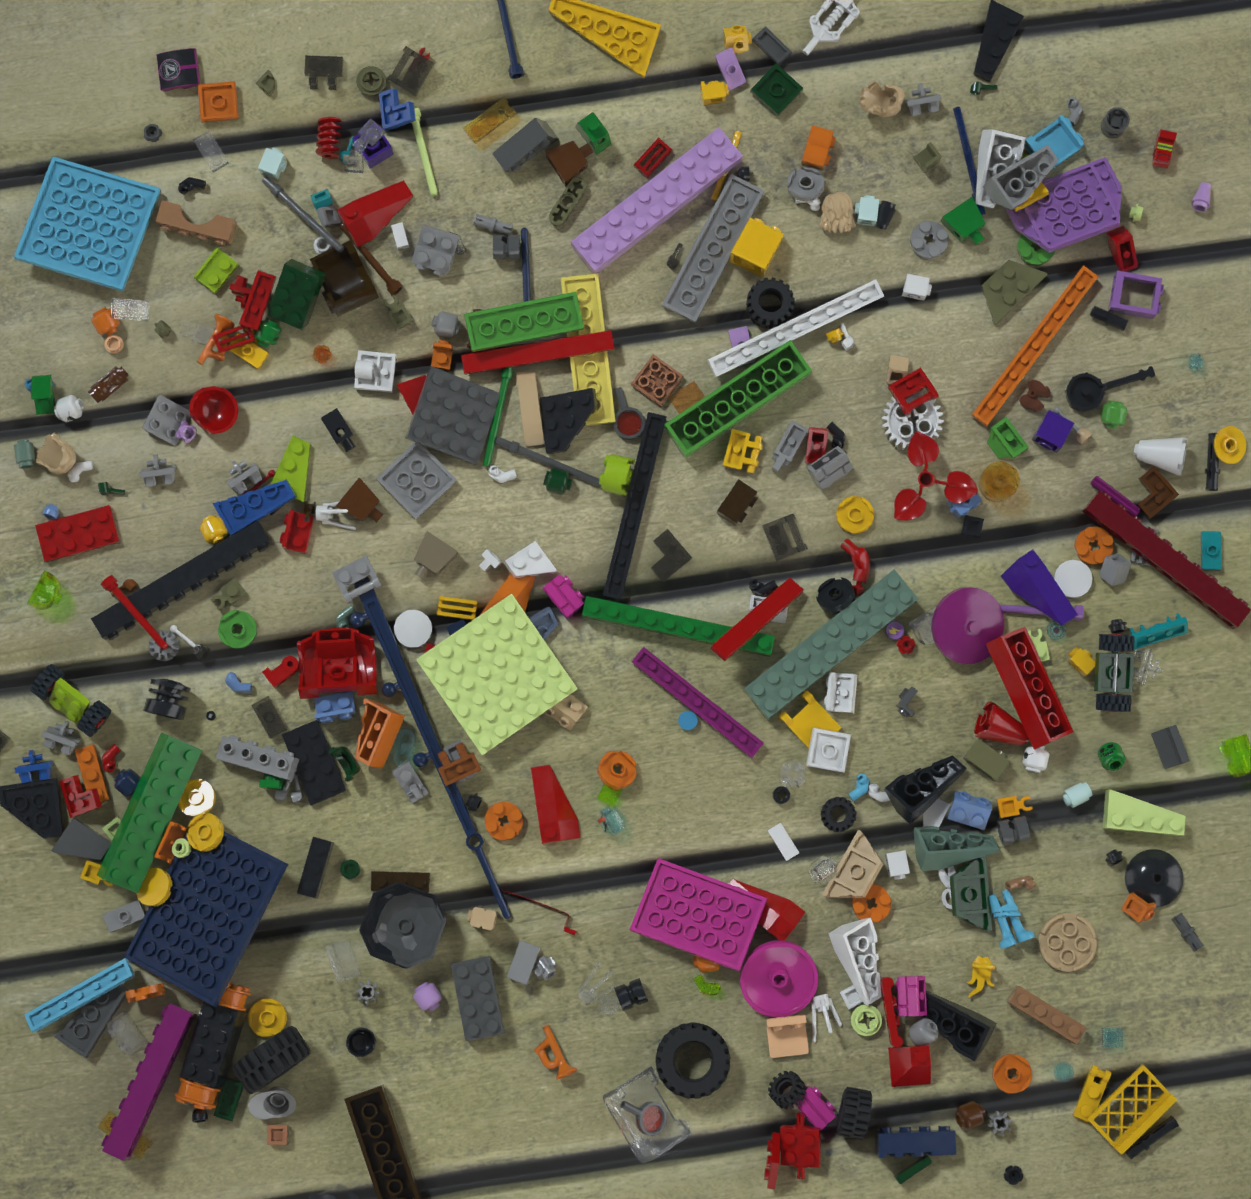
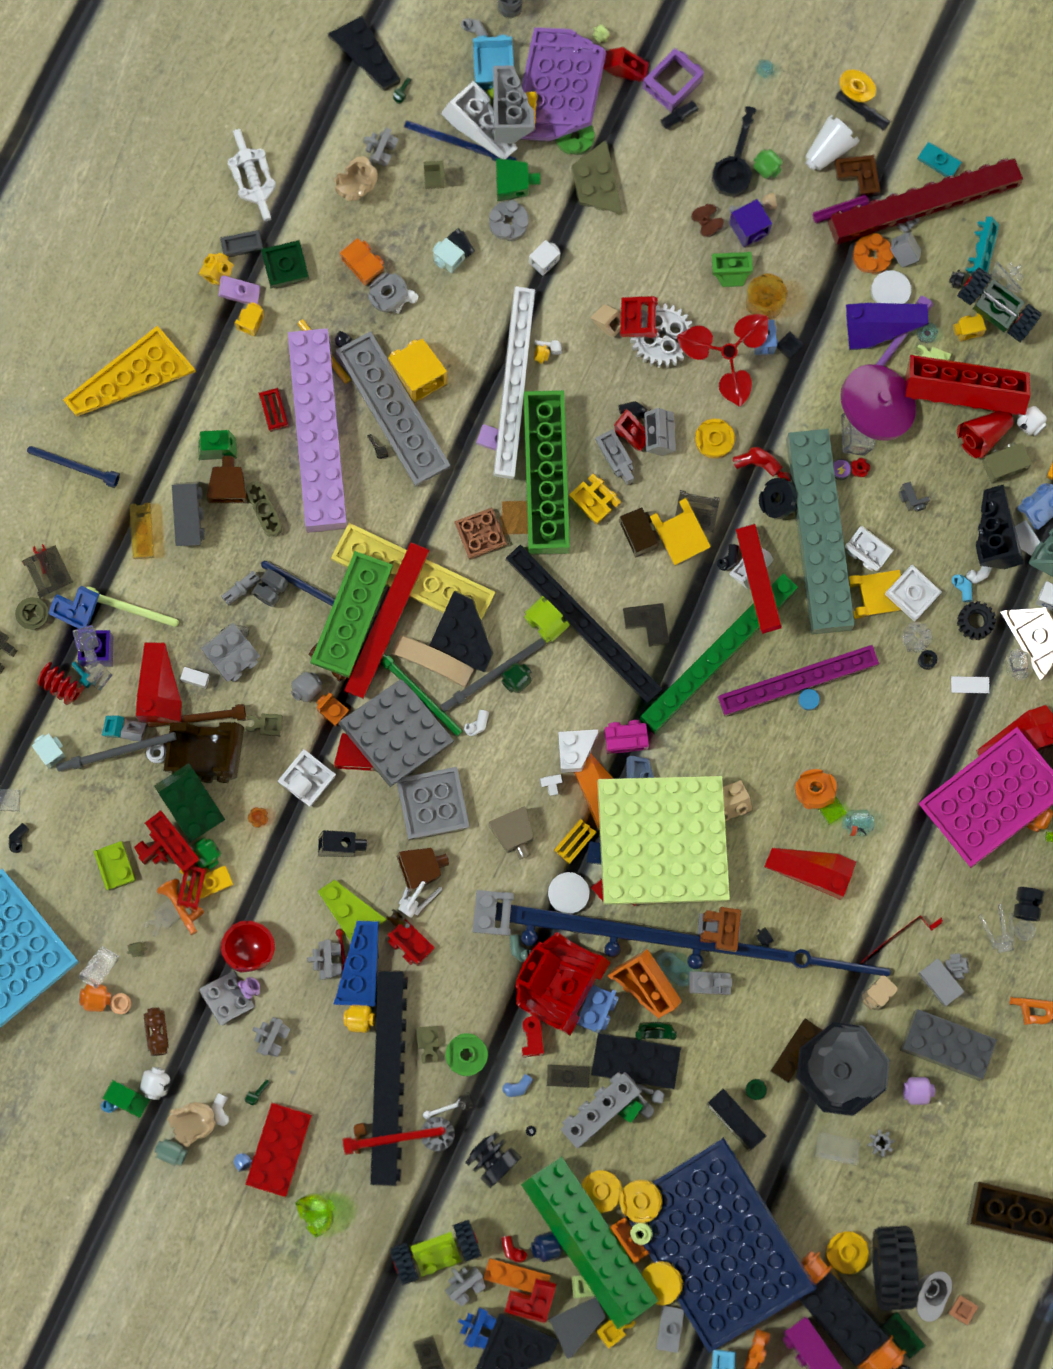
camera: 60 degrees left, 5 degrees down
(219, 229) = (78, 839): medium nougat arch -> none
(360, 1042) = (923, 1177): black hair -> none
(498, 811) = (800, 909): orange plate -> none
(629, 420) = (502, 580): piece -> none
(757, 536) = (681, 534): none -> yellow flag
(775, 288) = (472, 374): black tyre -> none
(837, 213) = (433, 282): tan hair -> none
(1034, 346) = (663, 192): orange plate -> none

